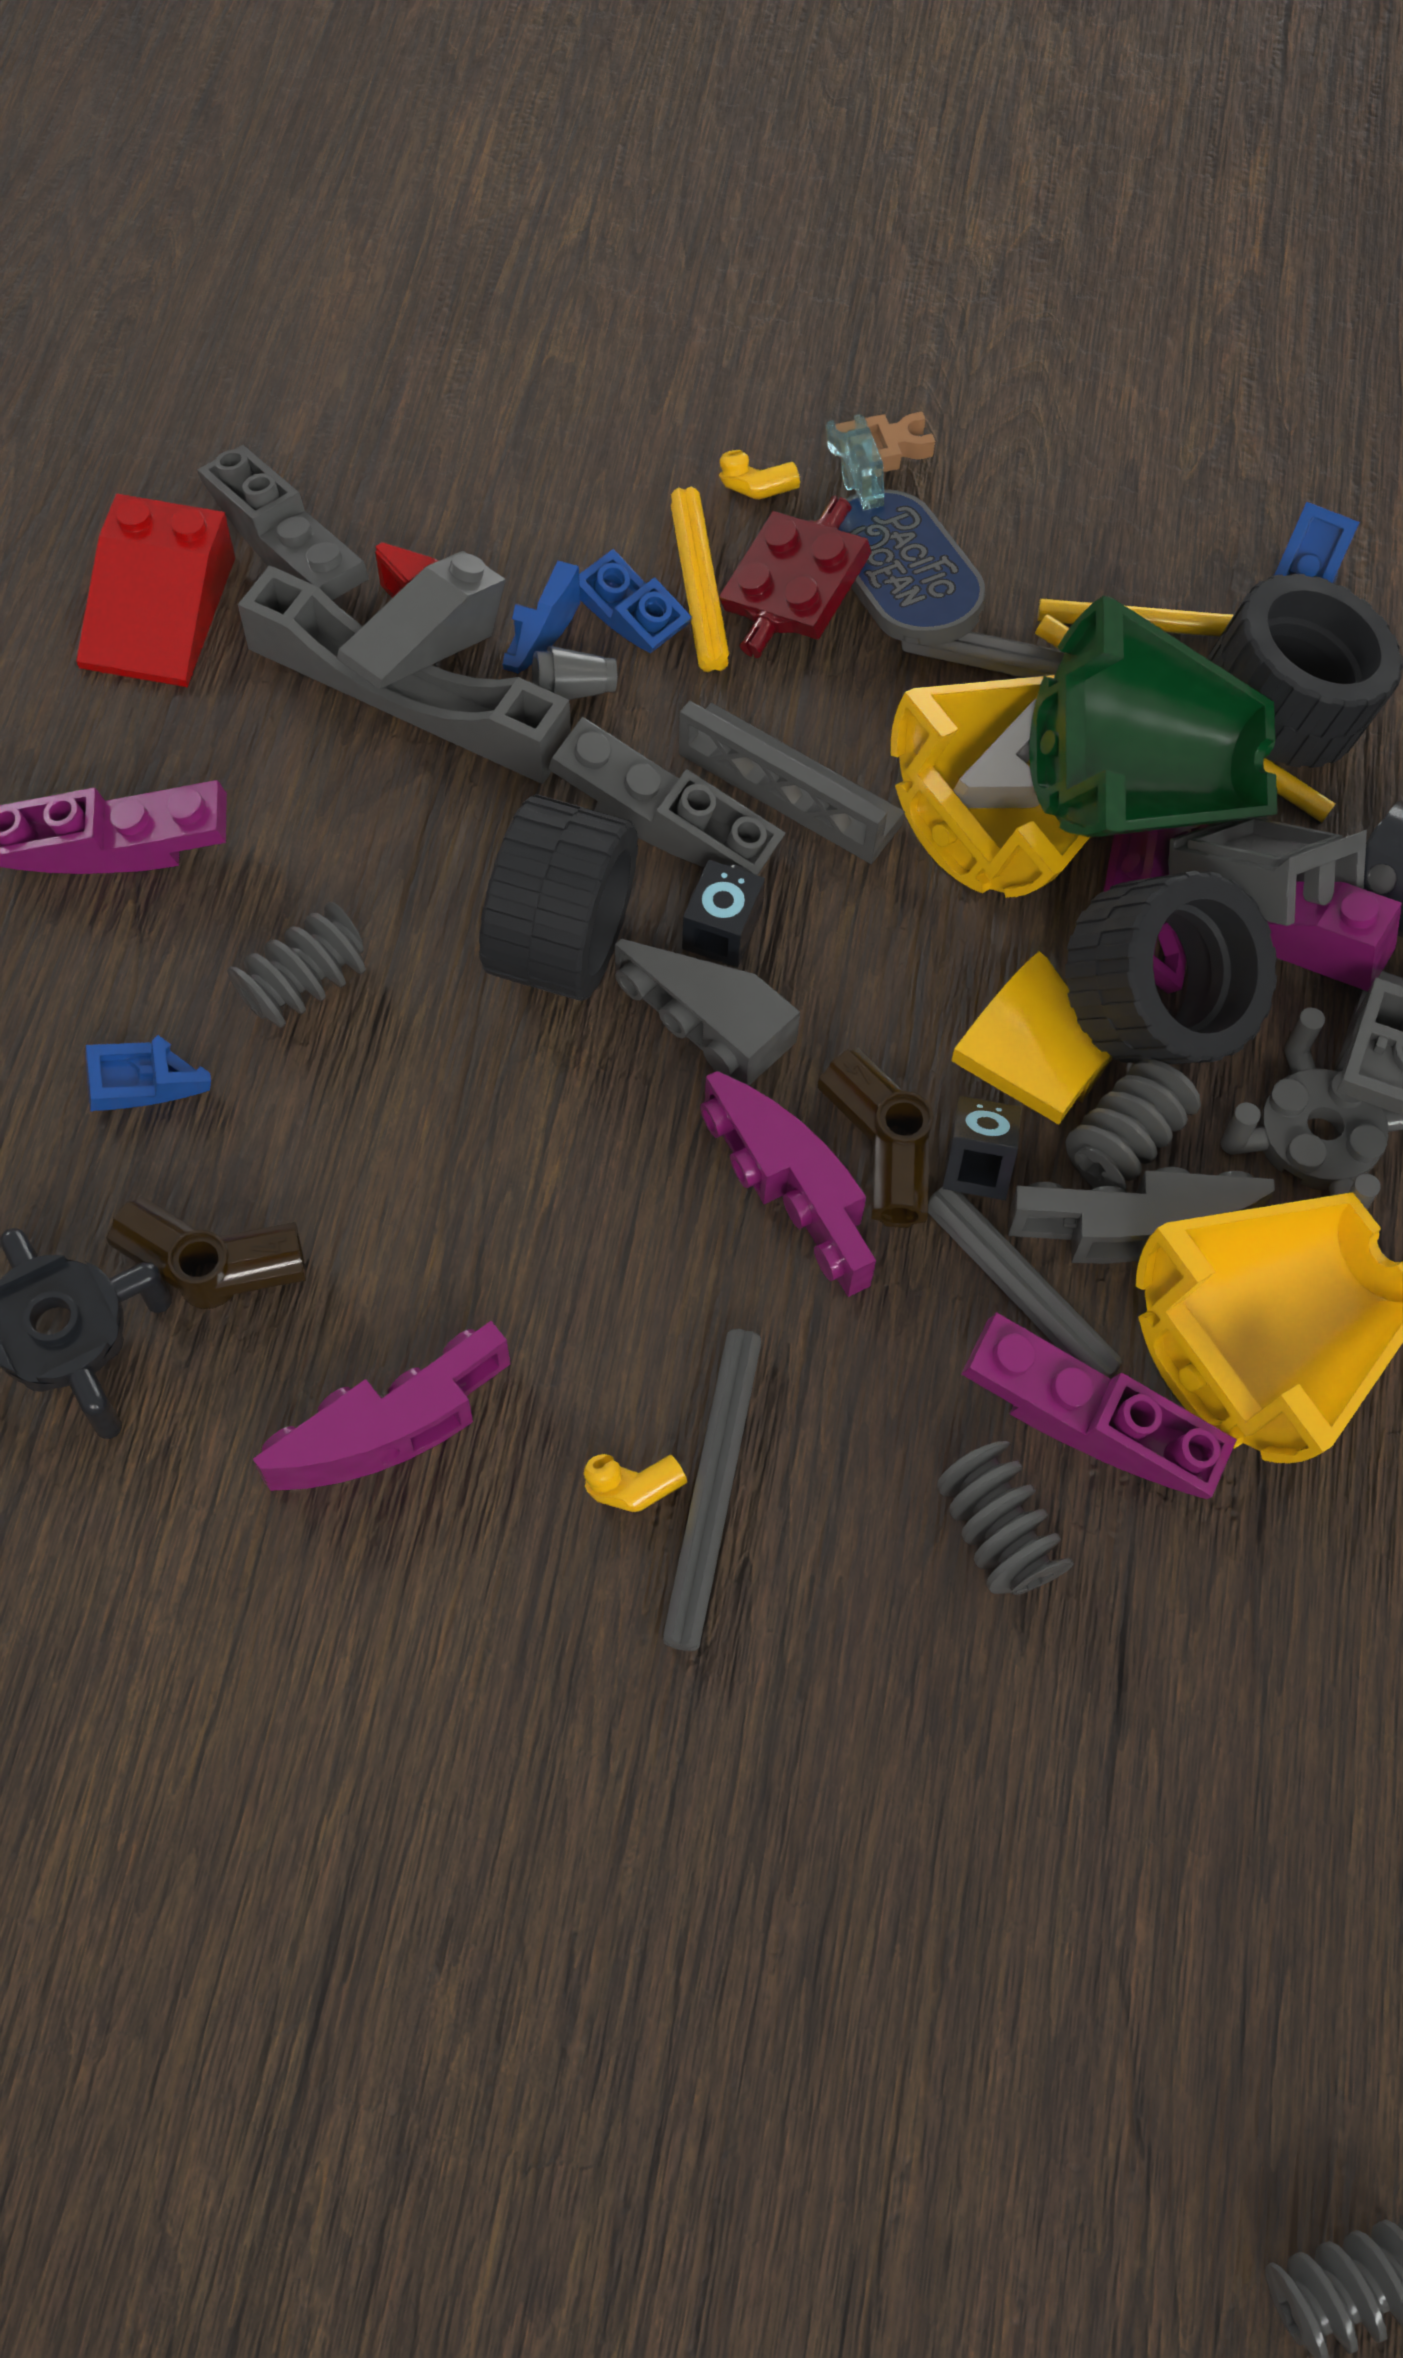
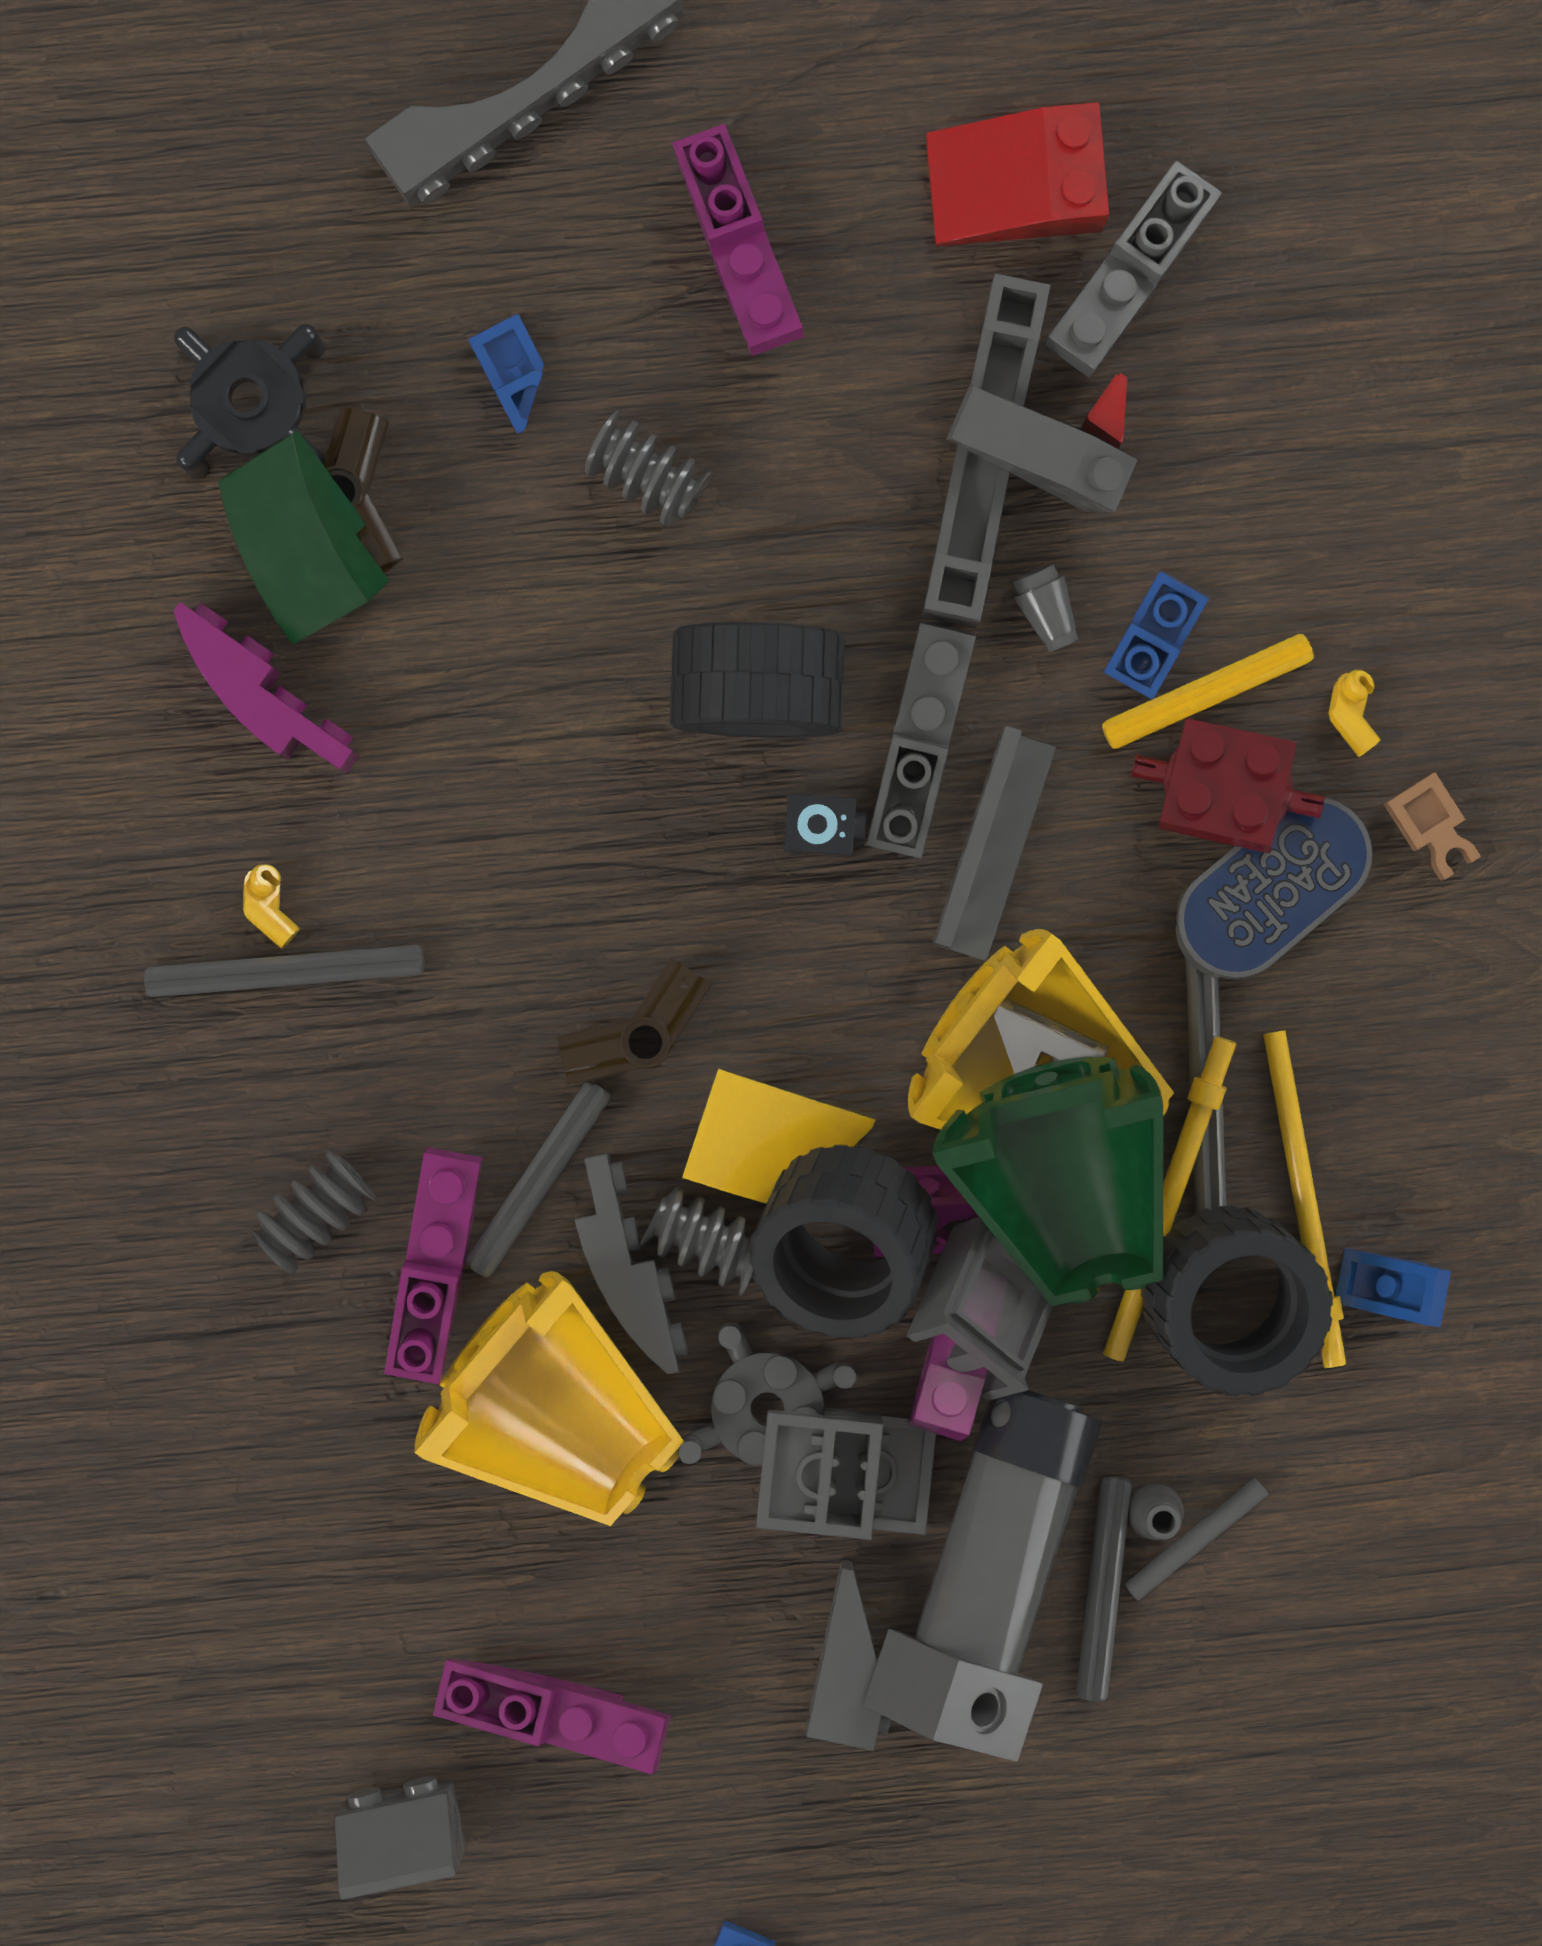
camera: 80 degrees right, 25 degrees up
(231, 1307) = (299, 538): none -> dark green slope
(543, 626) = (1085, 554): blue slope -> none
(721, 1009) = (717, 854): dark grey slope -> none
(788, 1160) = (590, 941): magenta slope -> none
(859, 461) = (1373, 815): clear light blue plate -> none
(982, 1148) = (643, 1115): black brick -> none

